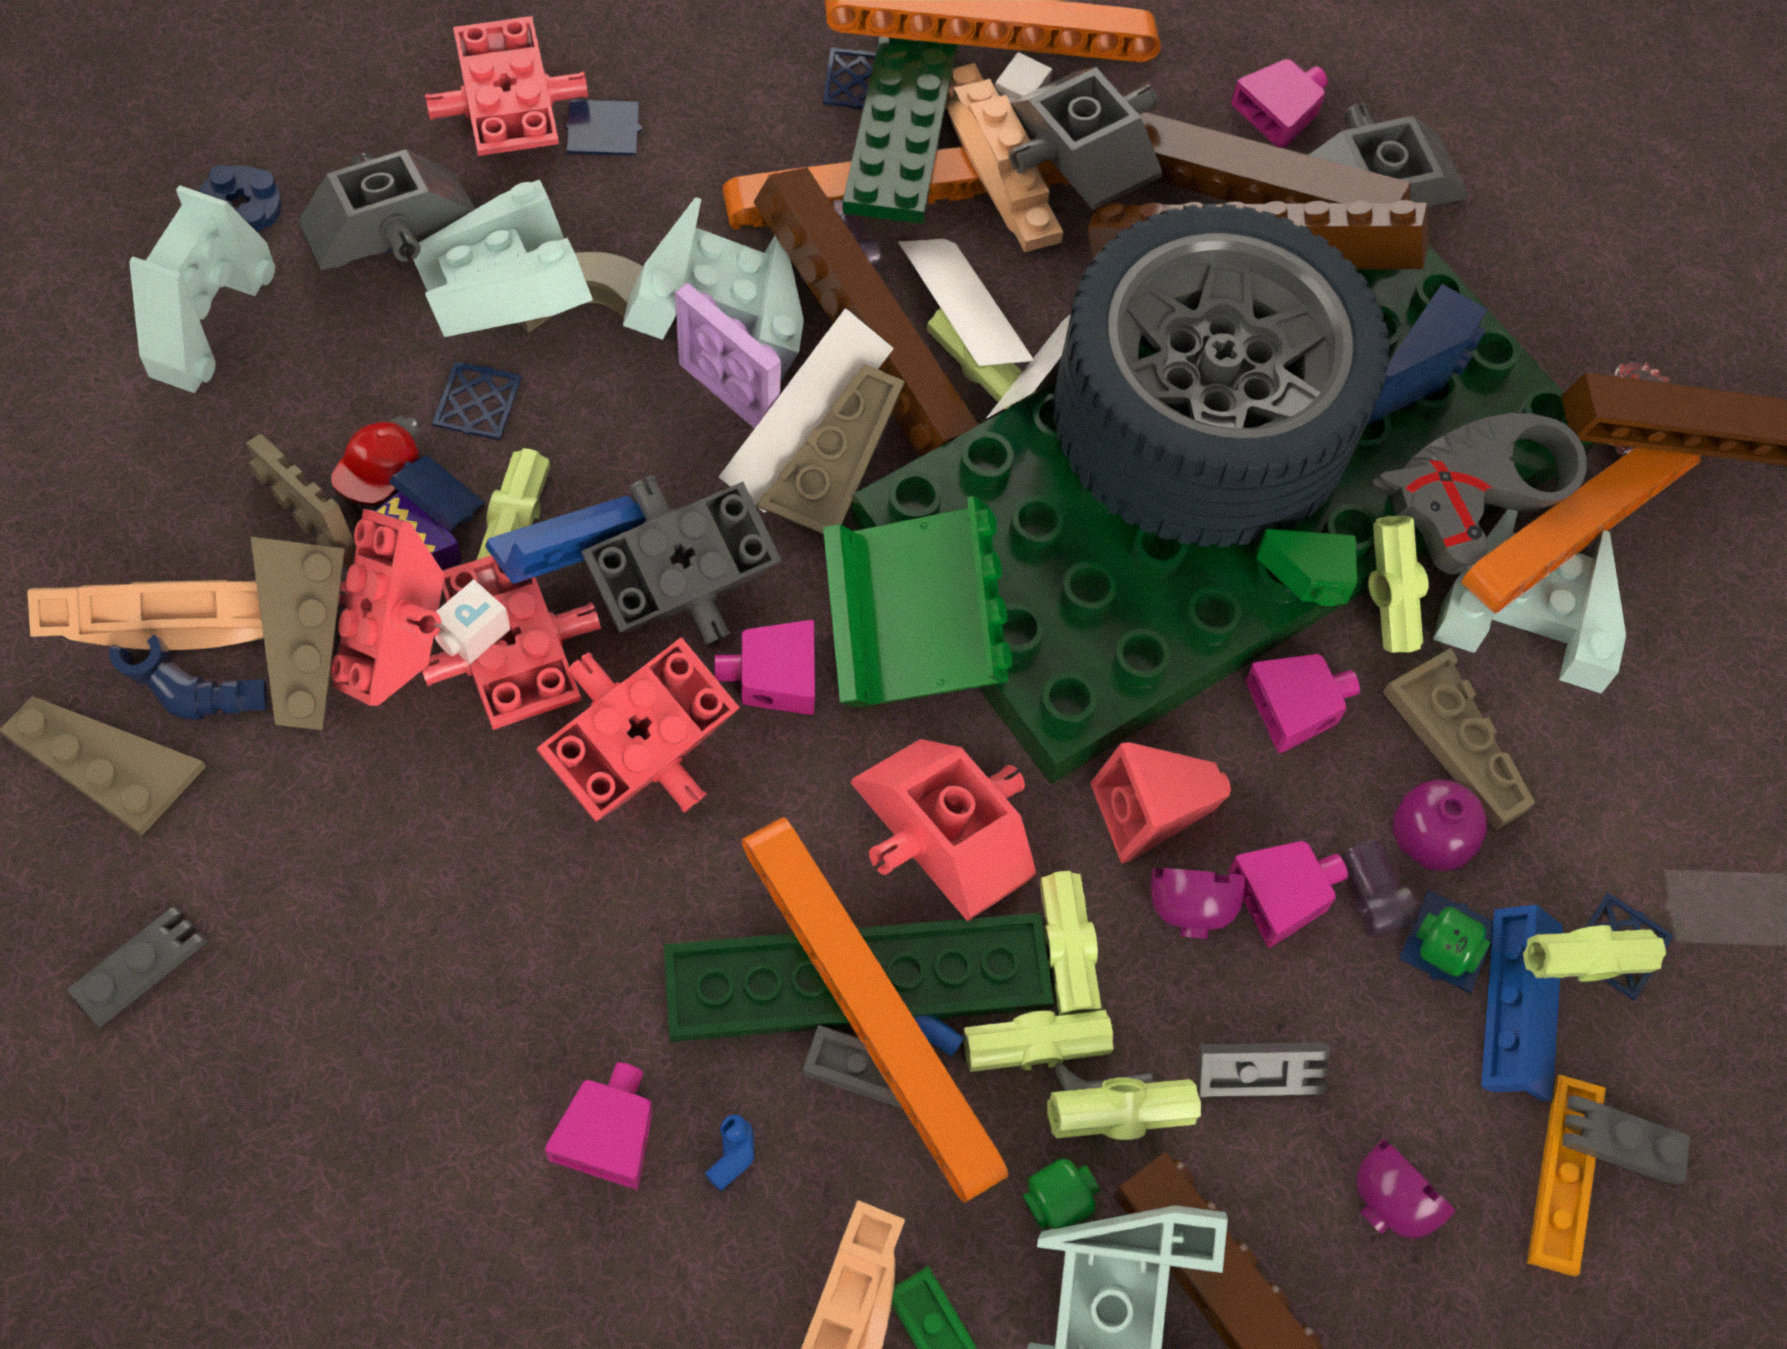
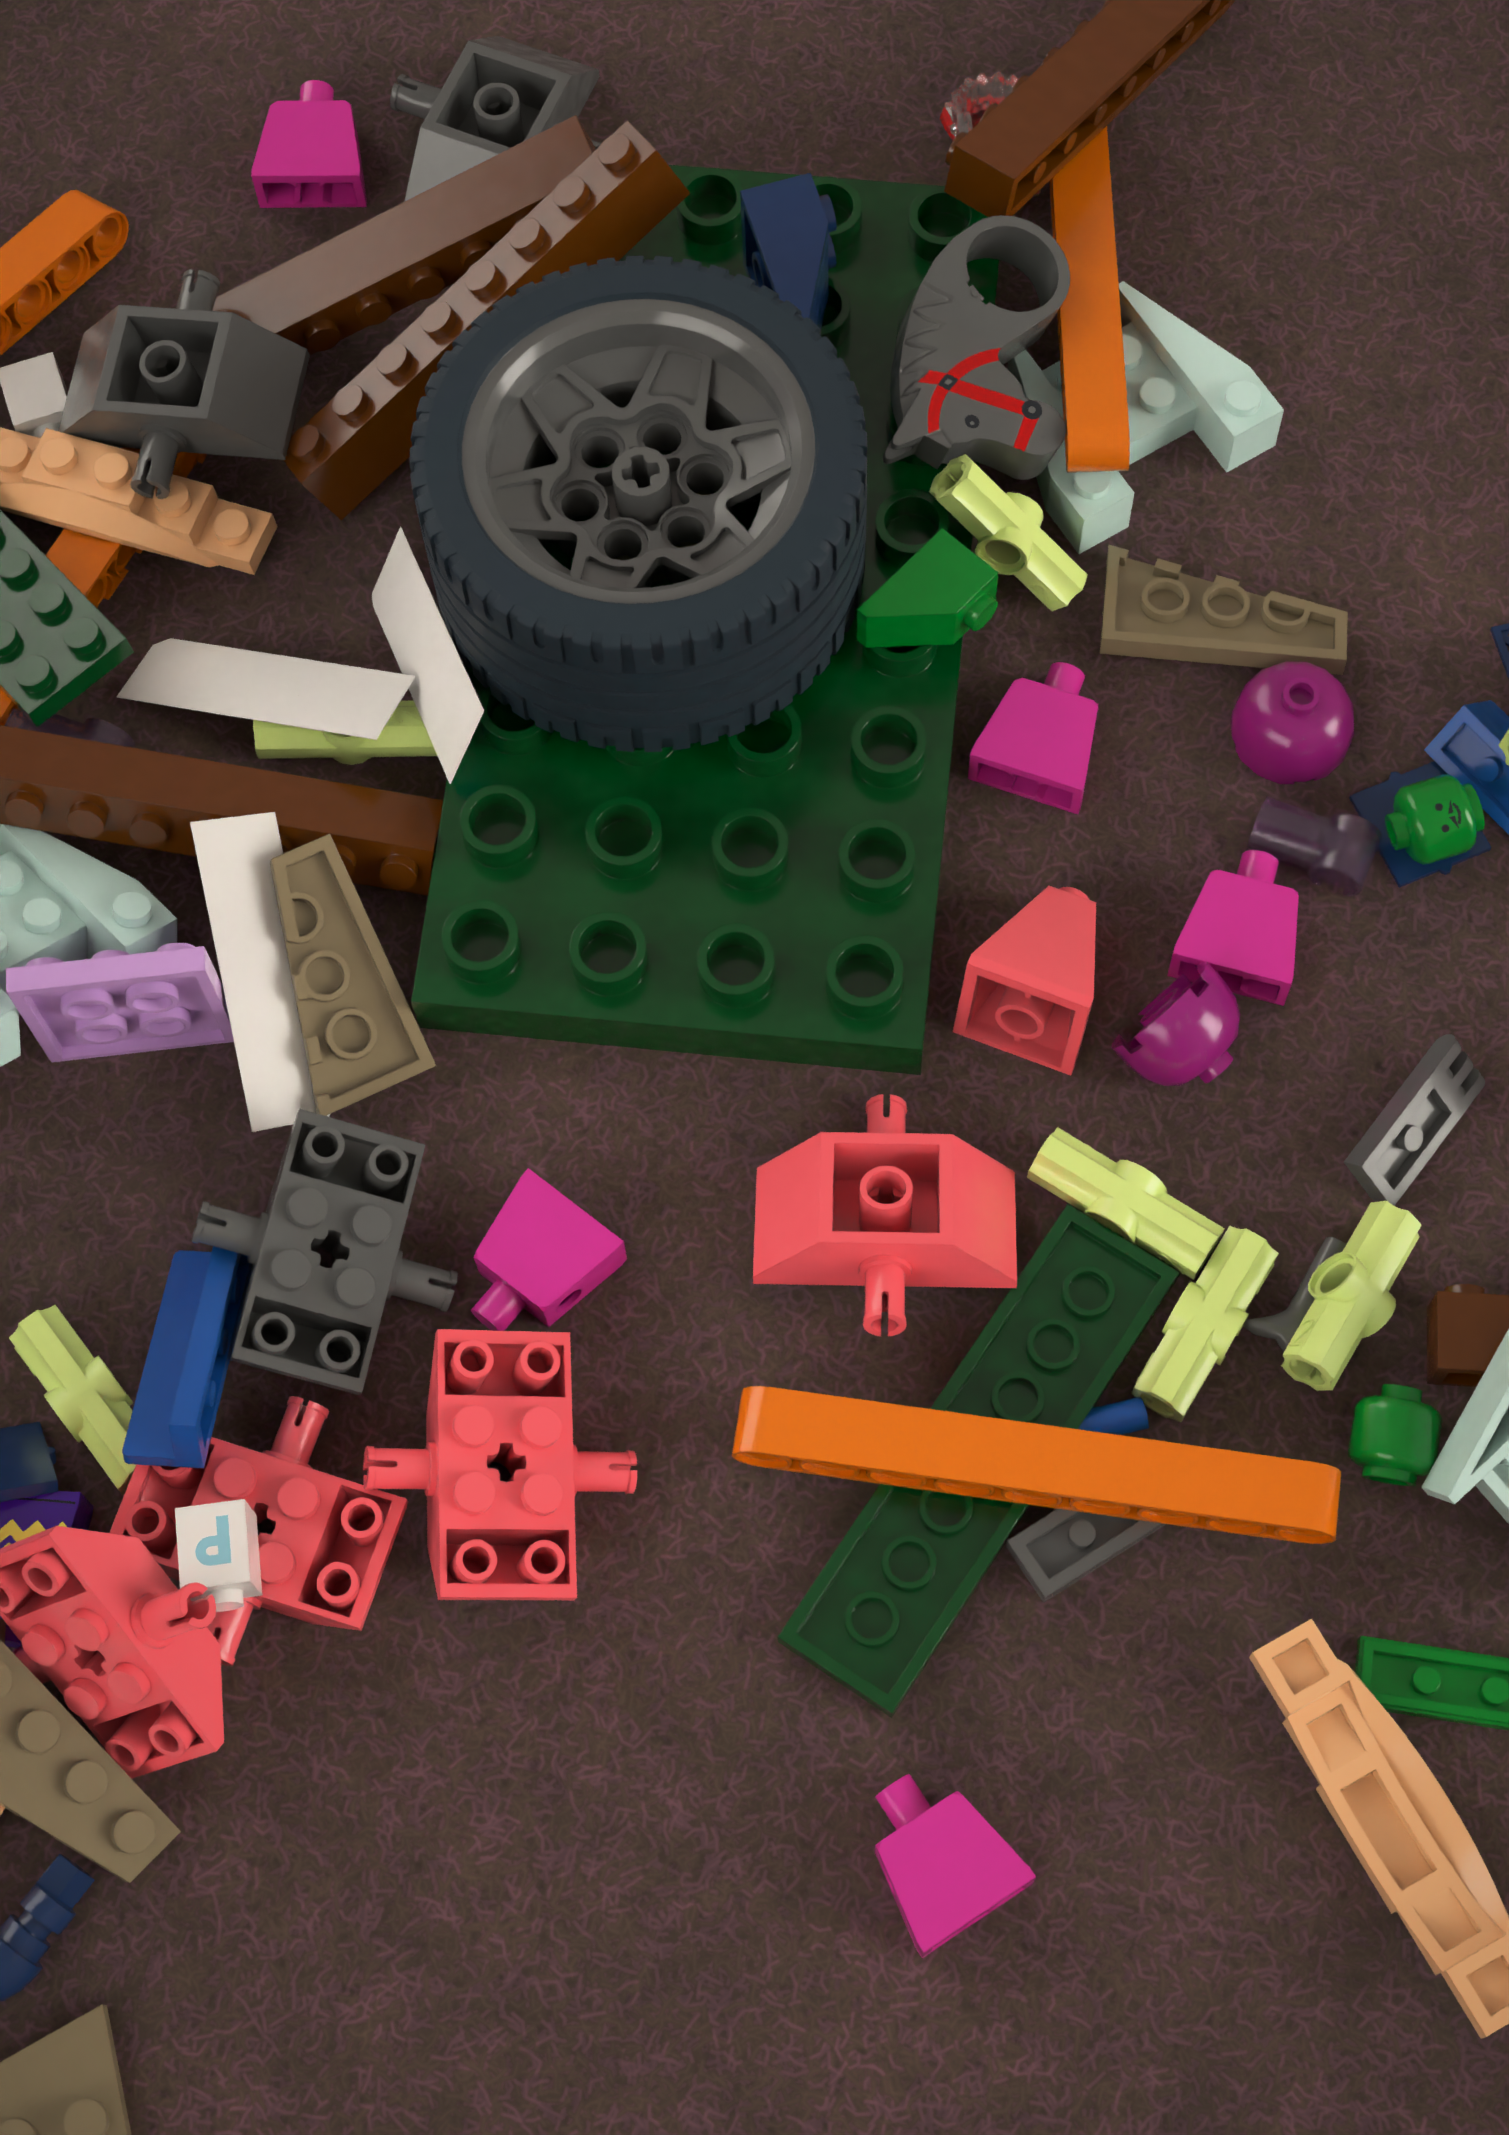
camera: 40 degrees left, 5 degrees up
(737, 1152) = (1078, 1742): blue arm -> none
(917, 607) = (616, 1041): green panel -> none

